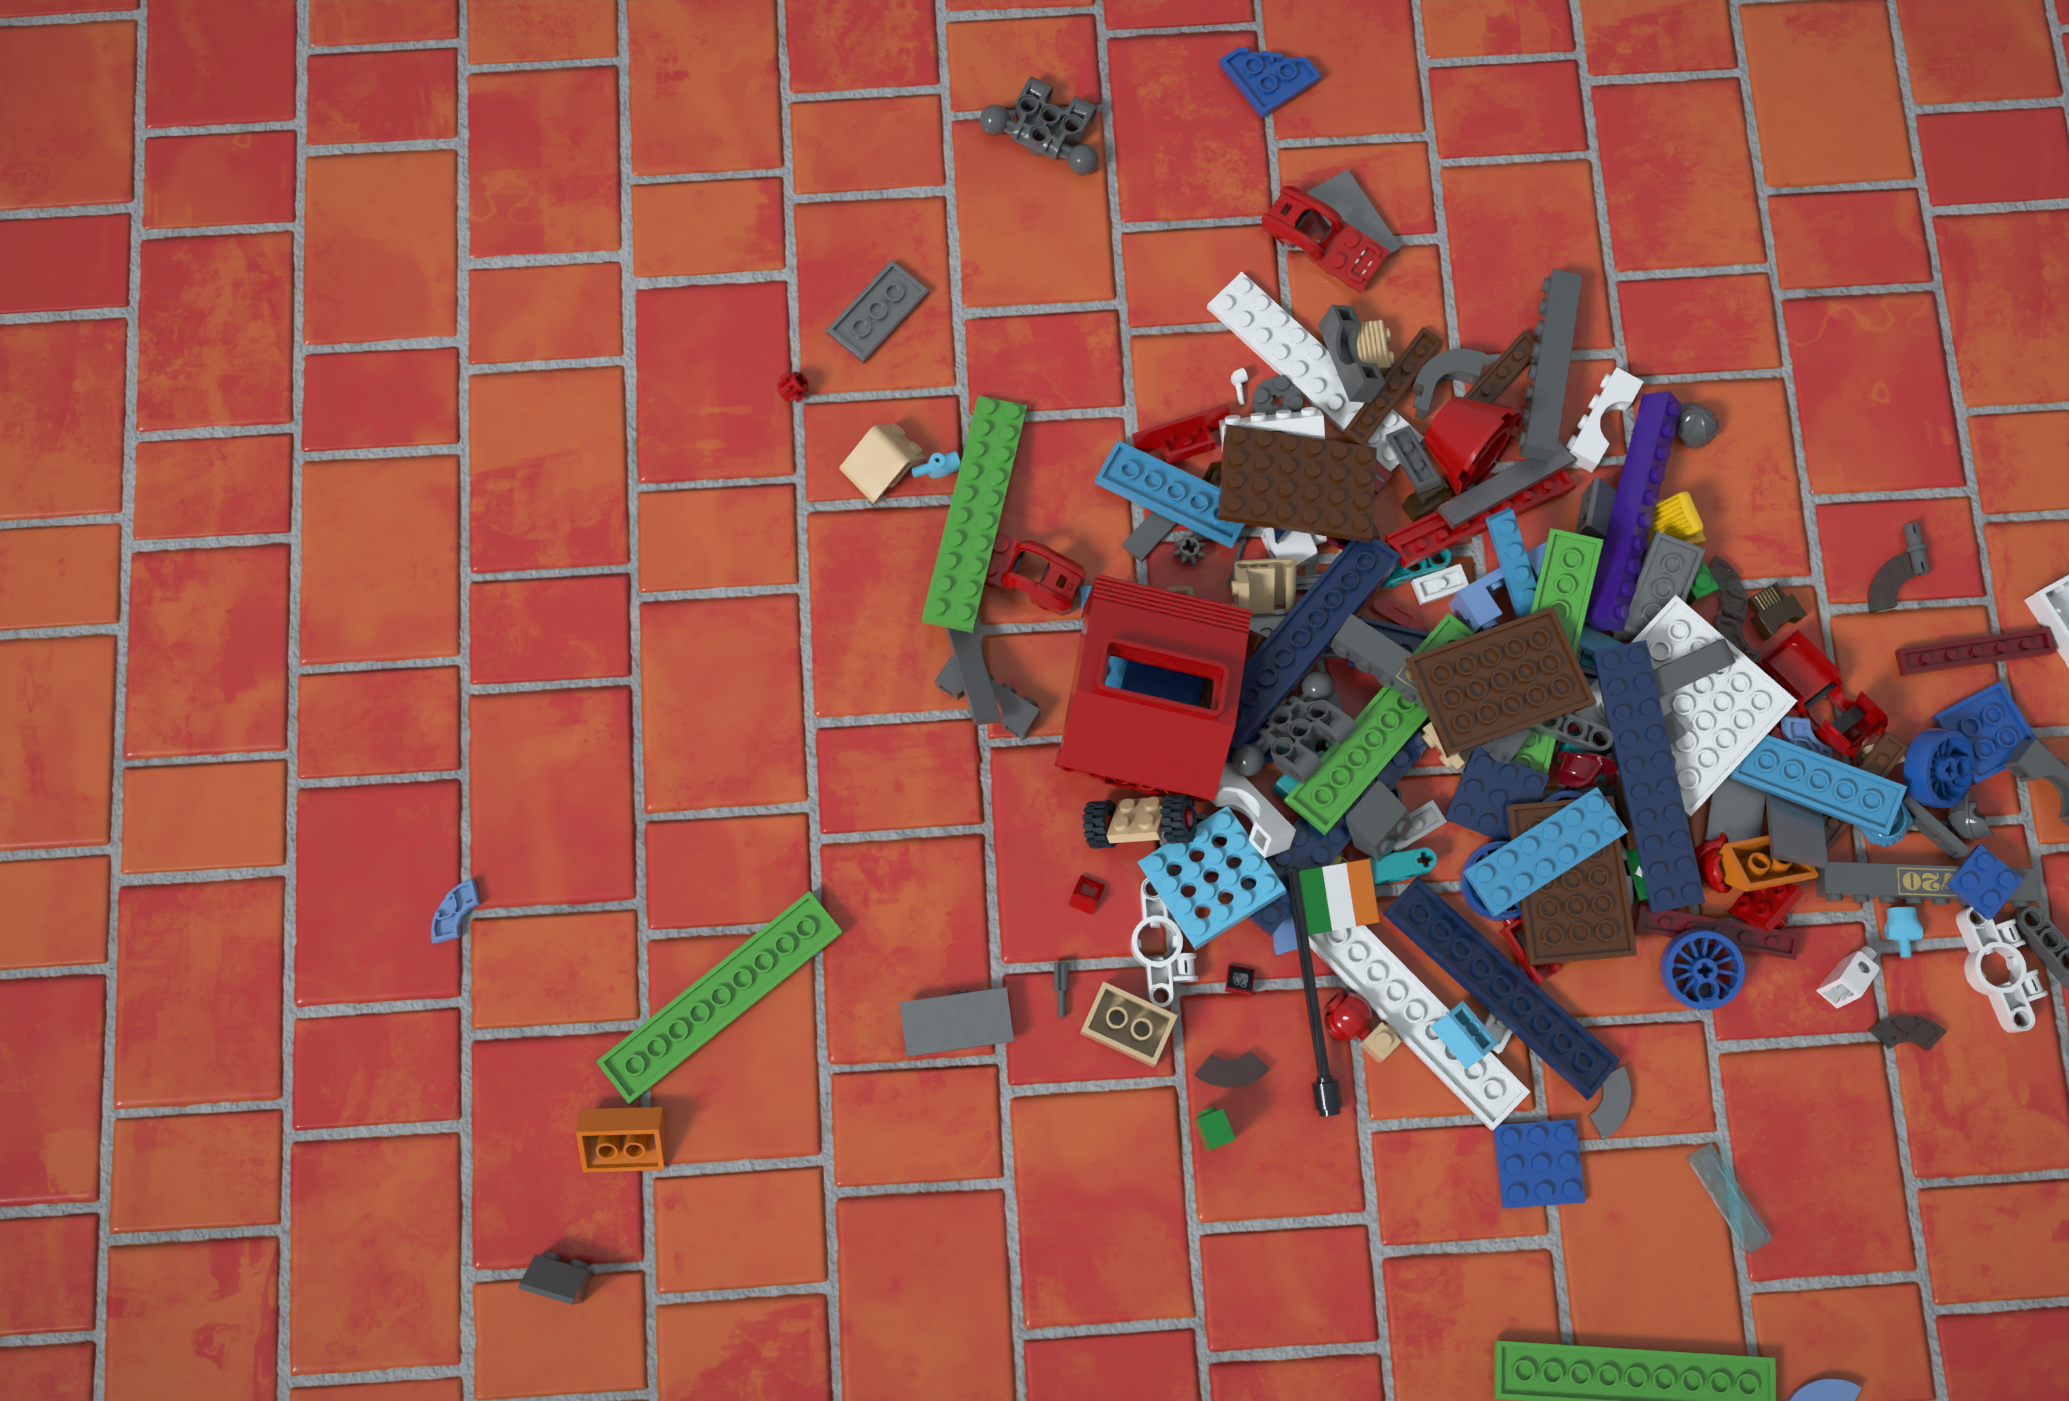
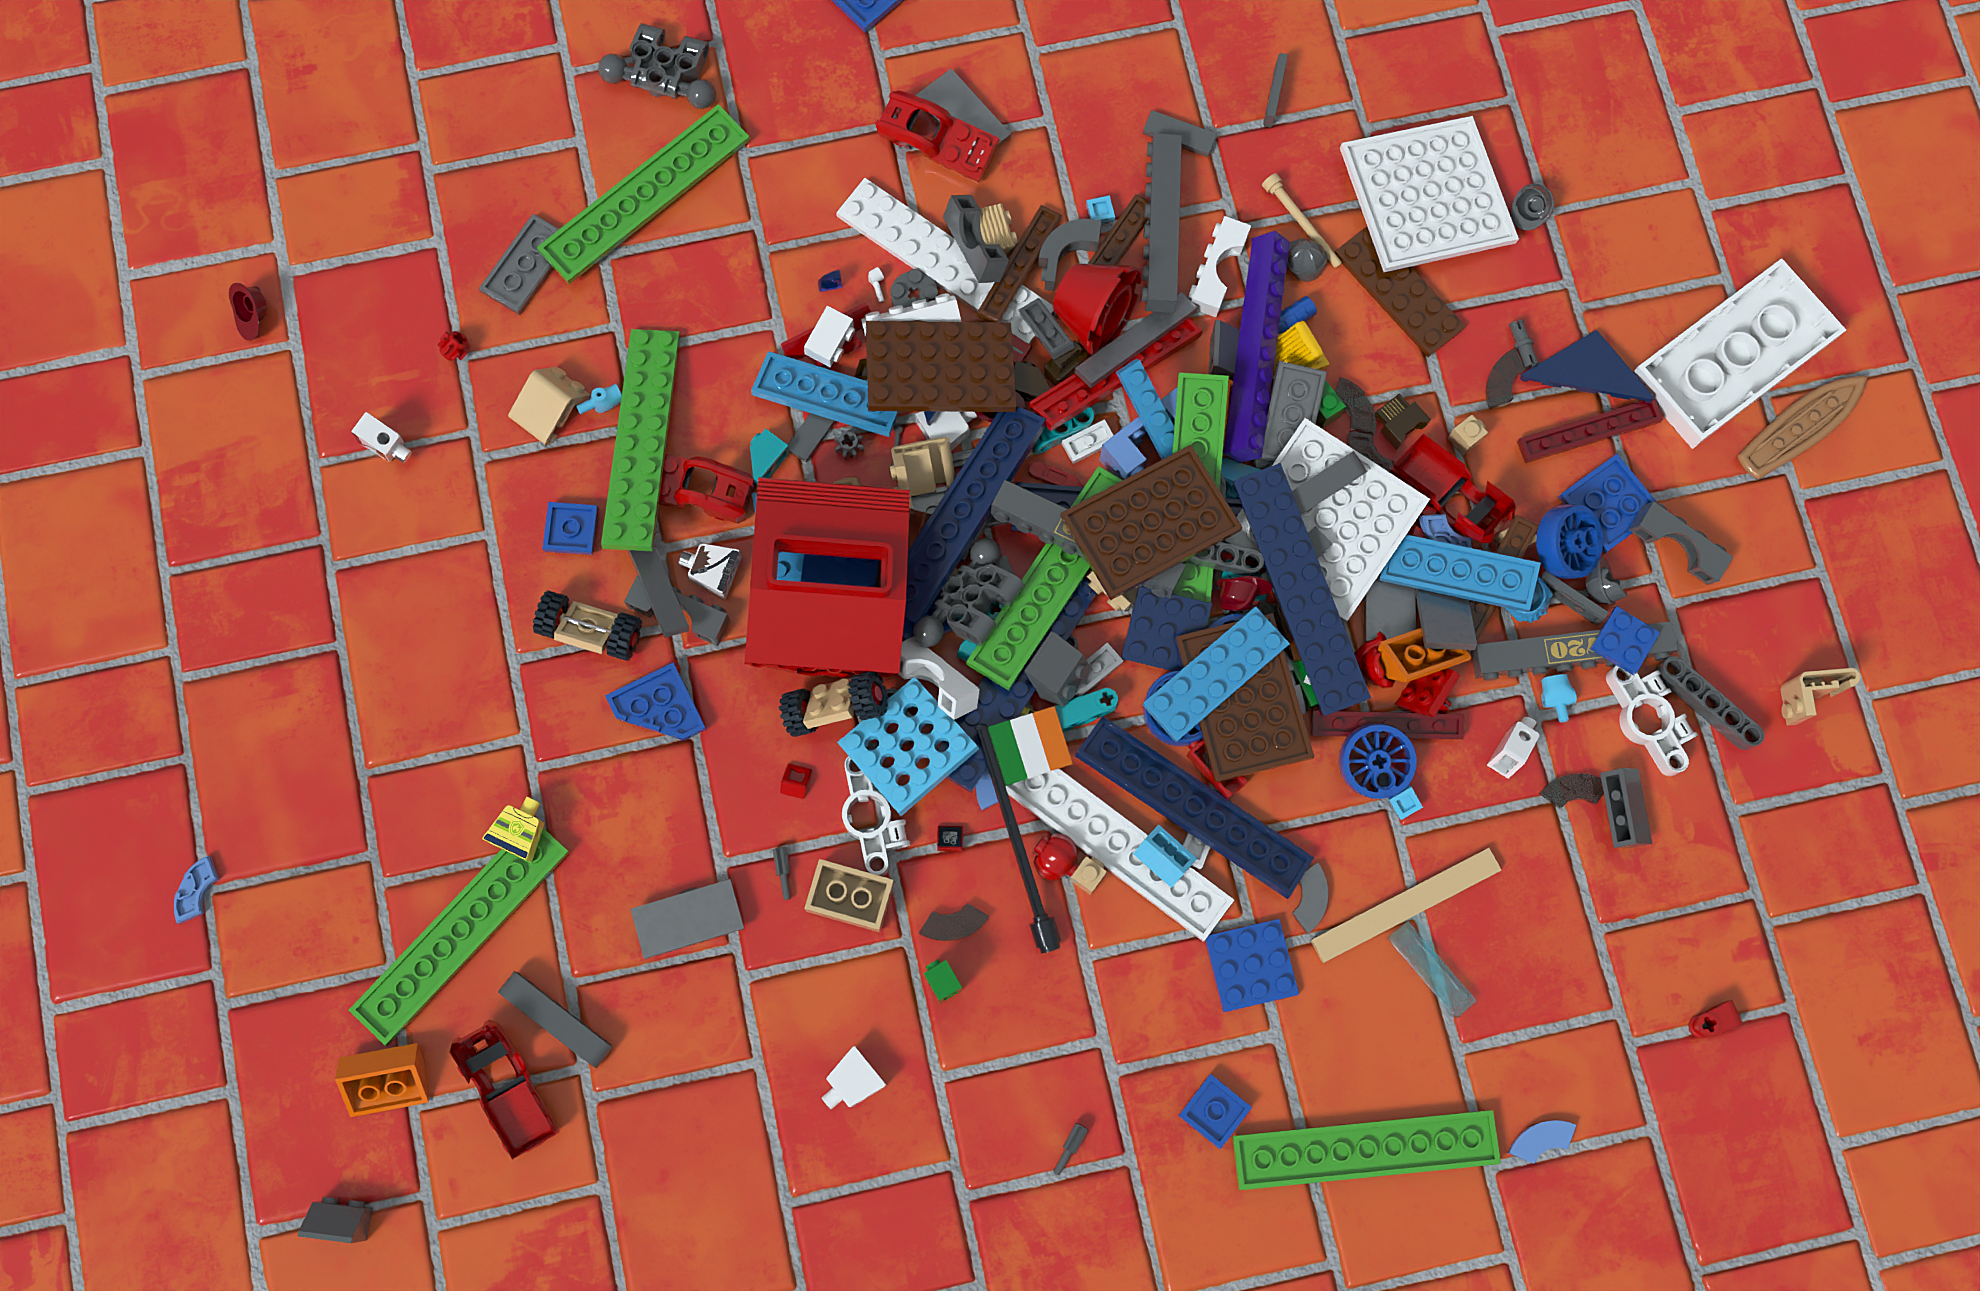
camera: 10 degrees left, 0 degrees up
(587, 317) = (248, 309): none -> dark red piece
(698, 466) = (373, 435): none -> white torso
(752, 1190) = (515, 1108): none -> red piece
(794, 902) = (517, 830): none -> light yellow torso
(806, 1105) = (555, 1019): none -> dark grey beam
(888, 595) = (570, 528): none -> blue plate
(893, 700) = (587, 626): none -> plate
(955, 793) = (658, 704): none -> blue plate
(1009, 256) = (643, 194): none -> bright green plate
(1029, 658) = (712, 567): none -> white torso
(1102, 548) = (767, 454): none -> teal slope
(1105, 1218) = (852, 1081): none -> white torso
(1185, 434) = (829, 336): none -> white brick
(1192, 375) = (830, 281): none -> clear blue tile
(1324, 1323) = (1071, 1146): none -> dark grey axle
(1388, 512) = (1029, 380): none -> dark brown slope
(1480, 1311) = (1215, 1111): none -> blue plate
(1485, 341) = (1101, 209): none -> medium azure plate
(1594, 279) = (1193, 137): none -> dark grey tile
(1673, 343) = (1274, 185): none -> tan piece
(1679, 481) = (1298, 311): none -> blue axle
(1687, 241) = (1275, 90): none -> dark grey tile
(1710, 1126) = (1405, 905): none -> tan tile
(1725, 1018) = (1405, 803): none -> medium azure plate
(1790, 472) = (1401, 295): none -> reddish brown plate
(1836, 374) = (1428, 193): none -> white plate
(1844, 637) = (1468, 435): none -> tan brick
(1945, 404) = (1532, 206): none -> dark grey piece
(1960, 1060) = (1626, 808): none -> dark grey brick
(1986, 585) = (1590, 367): none -> dark blue tile
(2028, 1301) = (1718, 1020): none -> red piece

